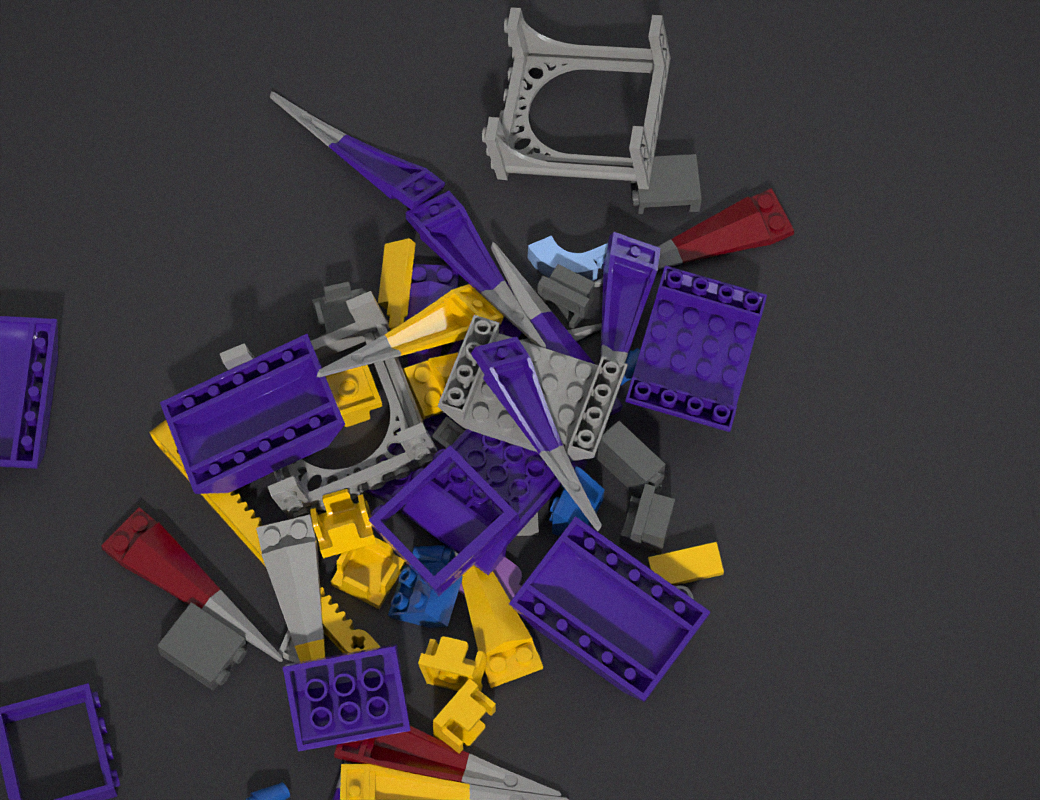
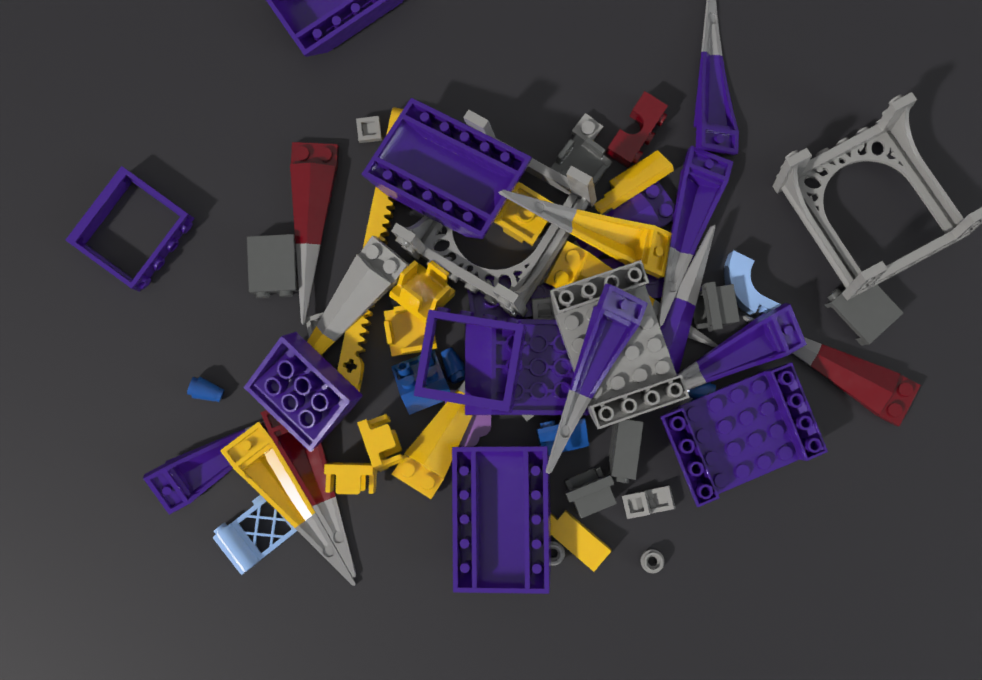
camera: 55 degrees right, 20 degrees up
(150, 470) = (369, 129): none -> light grey plate
(313, 287) = (587, 128): none -> light grey plate
(346, 228) = (648, 113): none -> dark red arch
(697, 482) = (648, 501): none -> light grey slope
(754, 511) = (659, 561): none -> light grey plate

